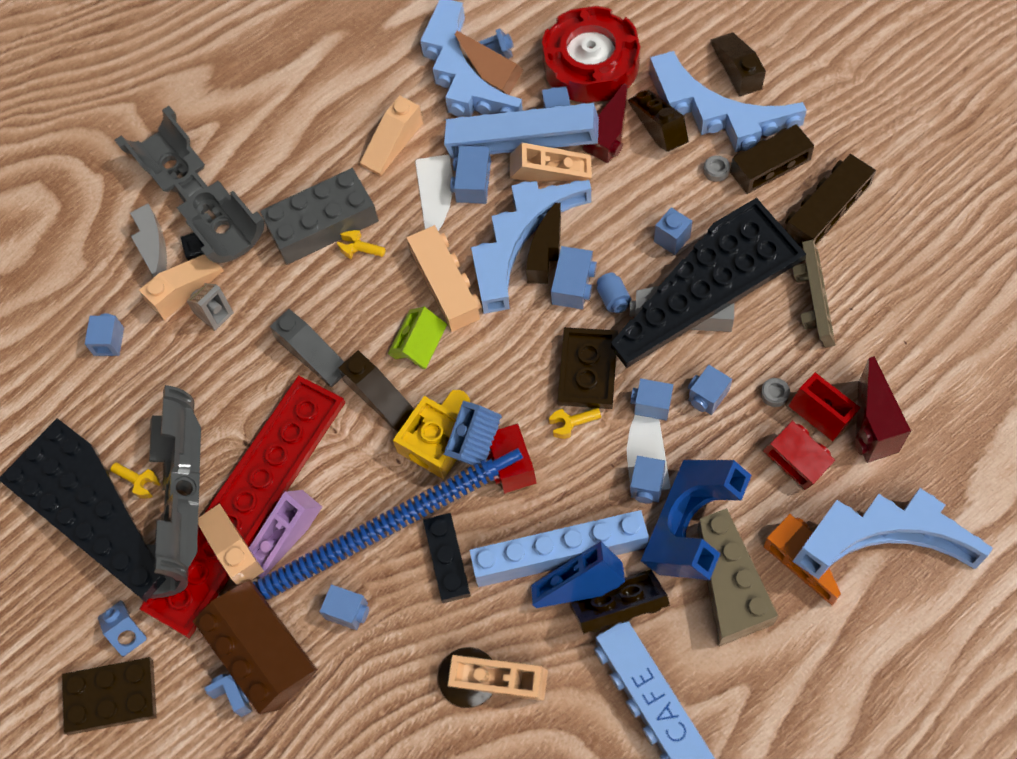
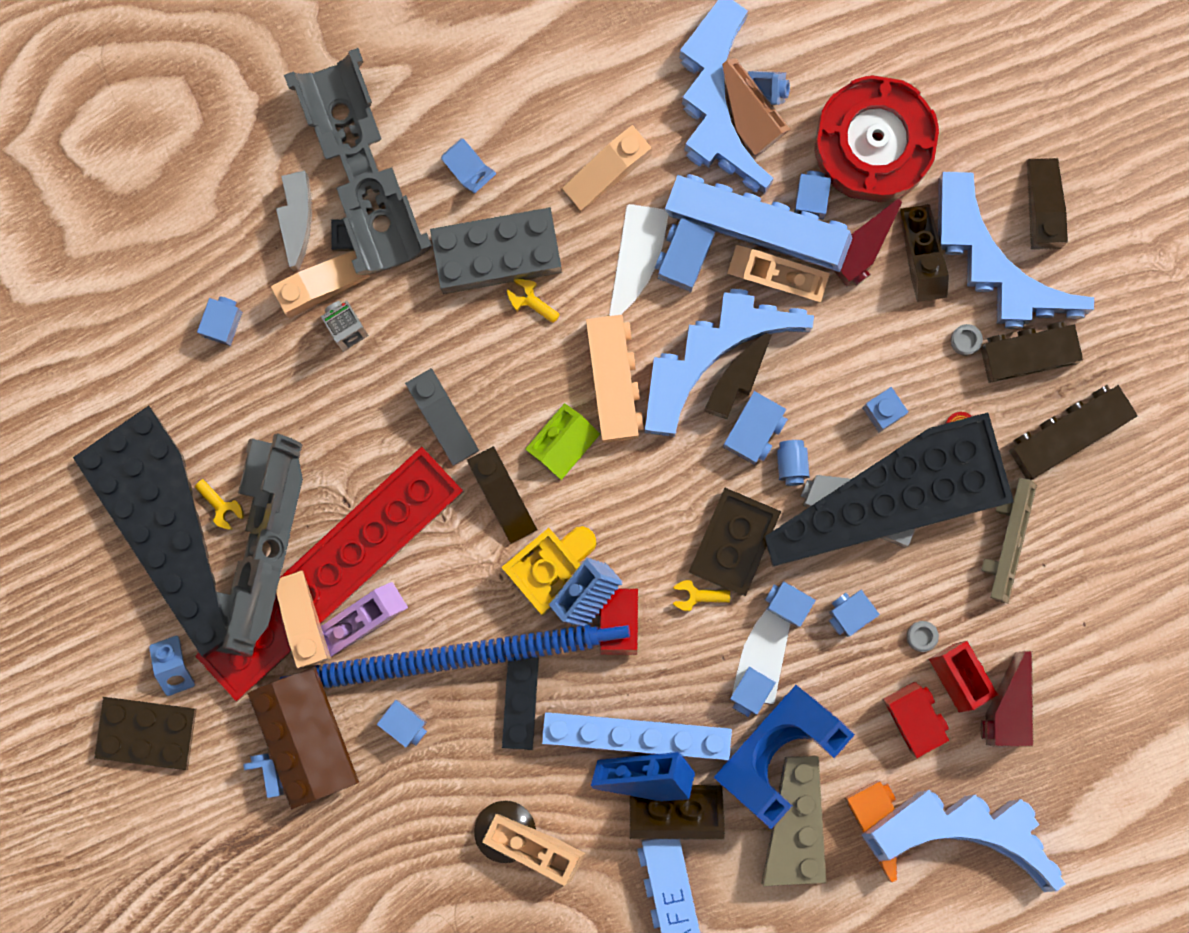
camera: 15 degrees right, 20 degrees up
(277, 166) = (467, 166): none -> medium blue bracket

